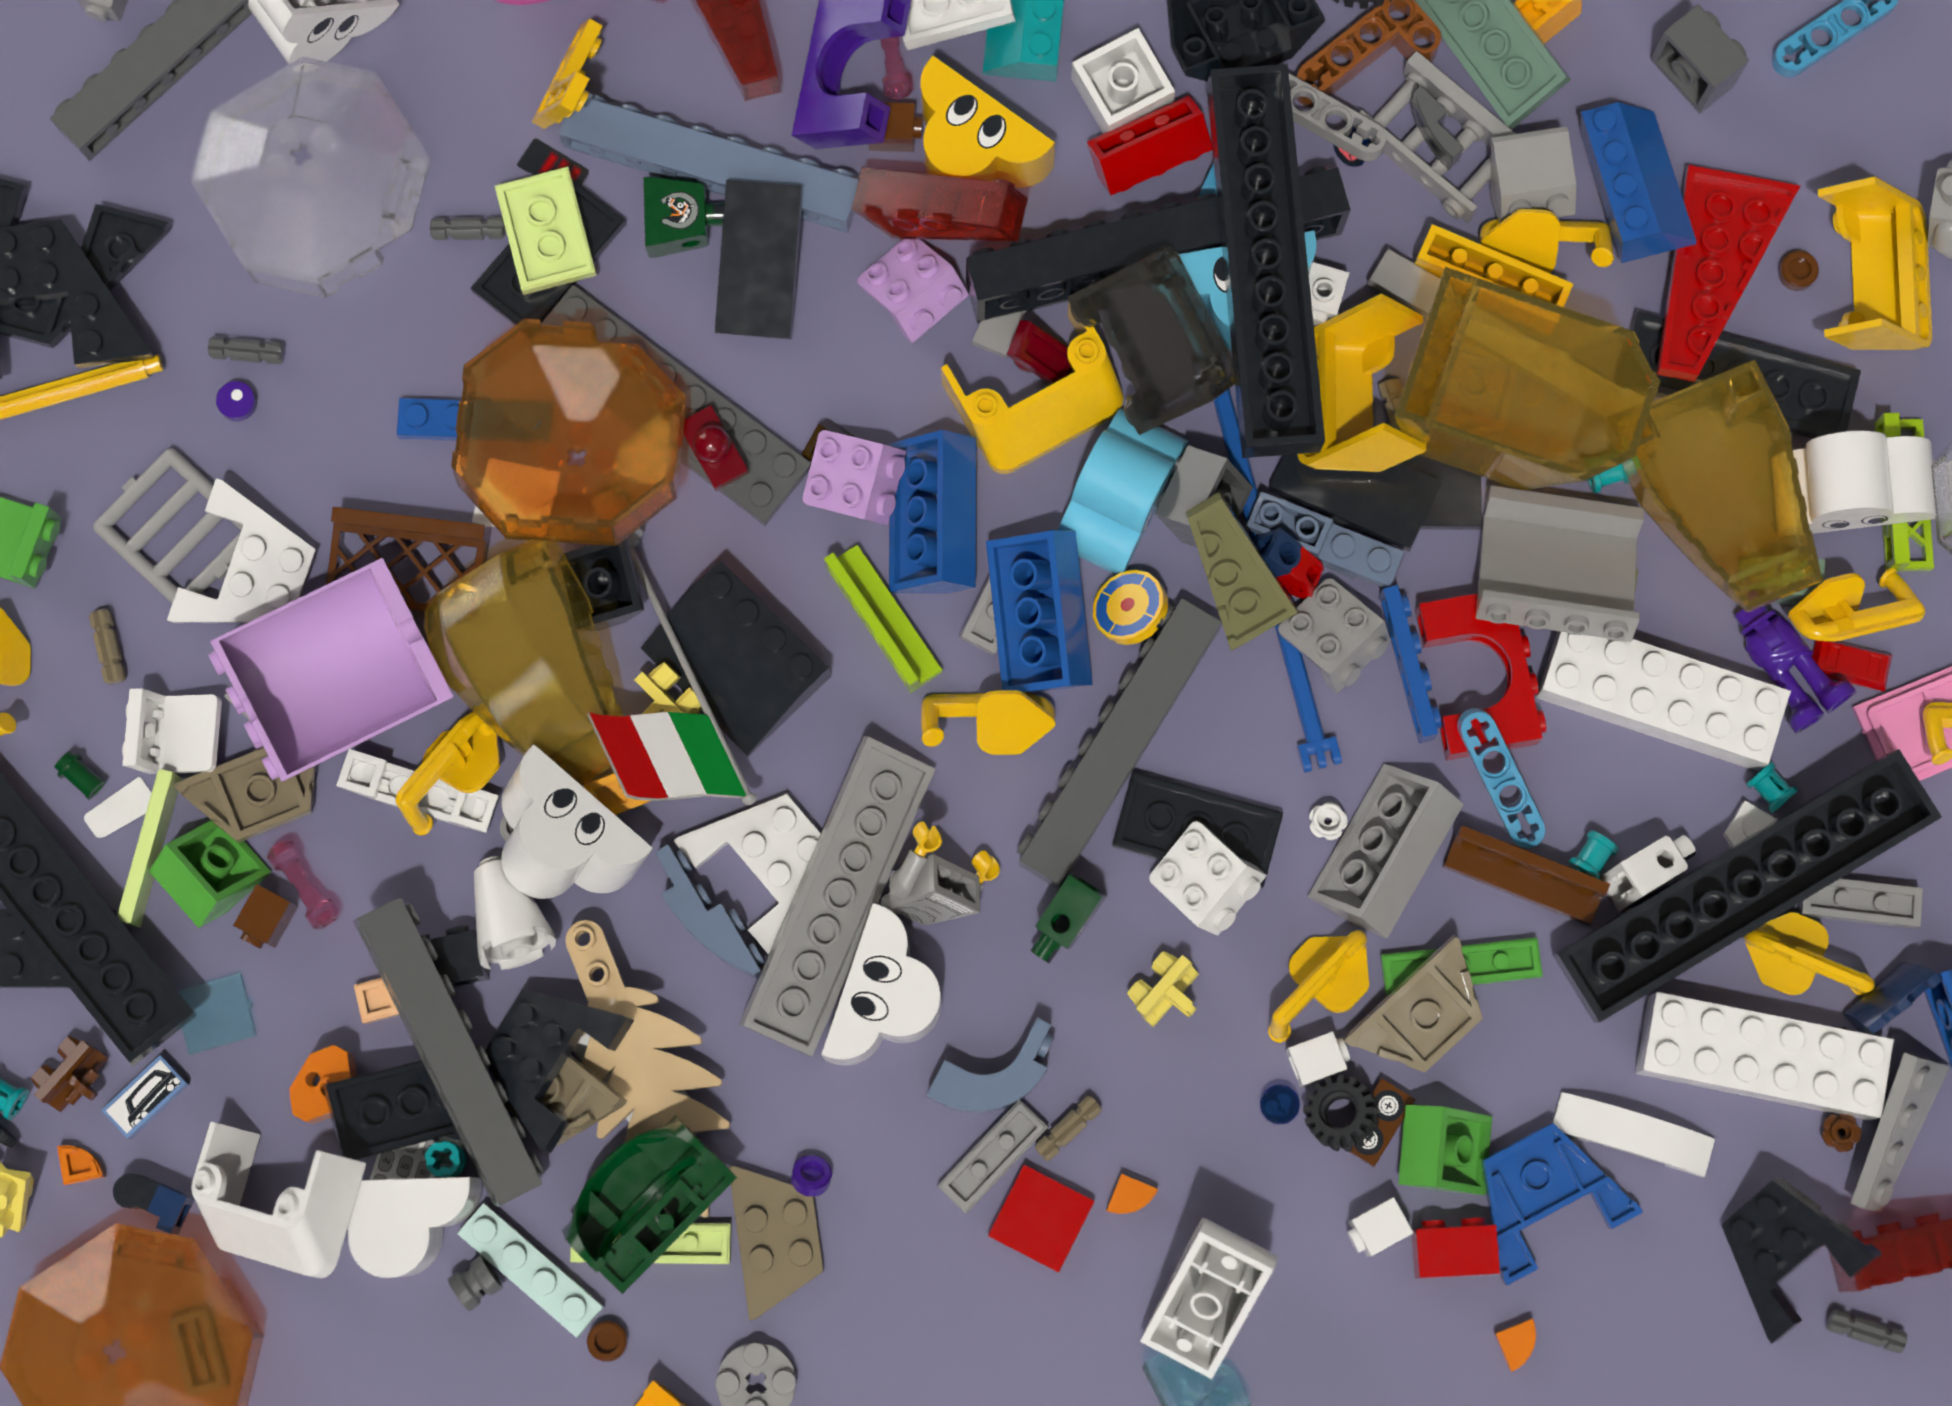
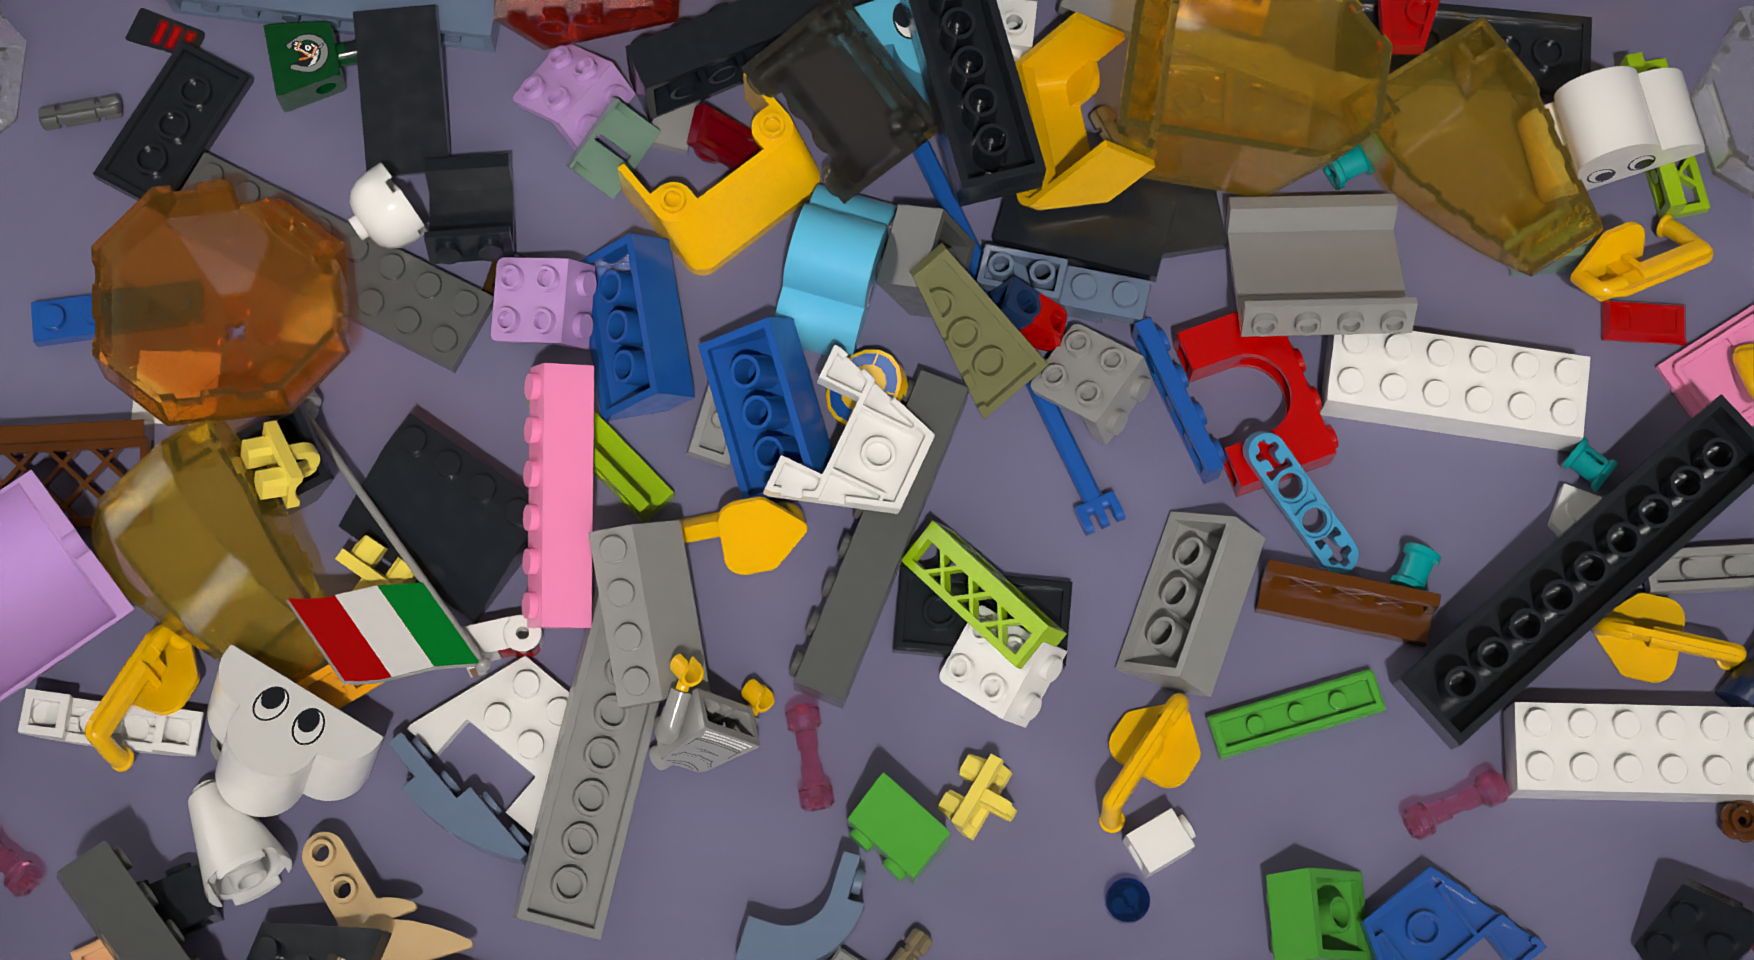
camera: 15 degrees left, 5 degrees down
(545, 230) = (165, 99): yellowish green tile -> none
(602, 599) = (280, 458): none -> light yellow hips
(713, 448) = (384, 297): dark red tile -> none
(724, 369) = (383, 211): none -> white cylinder
(772, 775) = (504, 639): none -> white leg
(802, 380) = (470, 208): none -> black panel
(840, 660) = (559, 496): none -> bright pink brick
(883, 995) = (669, 856): white brick -> none
(901, 775) = (646, 608): none -> light grey slope
(953, 329) = (624, 130): none -> sand green piece
(1021, 960) = (815, 792): none -> clear pink piece
(1079, 903) = (861, 714): dark green torso -> none
(1087, 1008) = (897, 830): none -> bright green slope
(1125, 671) = (873, 456): none -> white wing
(1212, 805) = (994, 584): none -> lime fence
(1330, 1092) = (1191, 871): black tyre -> none
(1337, 816) = (1126, 572): white plate -> none
(1392, 1112) = (1237, 901): tile -> none
(1423, 1013) = (1265, 771): dark tan wing -> none
(1618, 1063) = (1487, 790): none -> clear pink piece
(1633, 1133) = (1519, 862): white slope -> none
(1648, 870) = (1477, 574): white torso -> none
(1776, 648) = (1566, 316): dark purple piece -> none

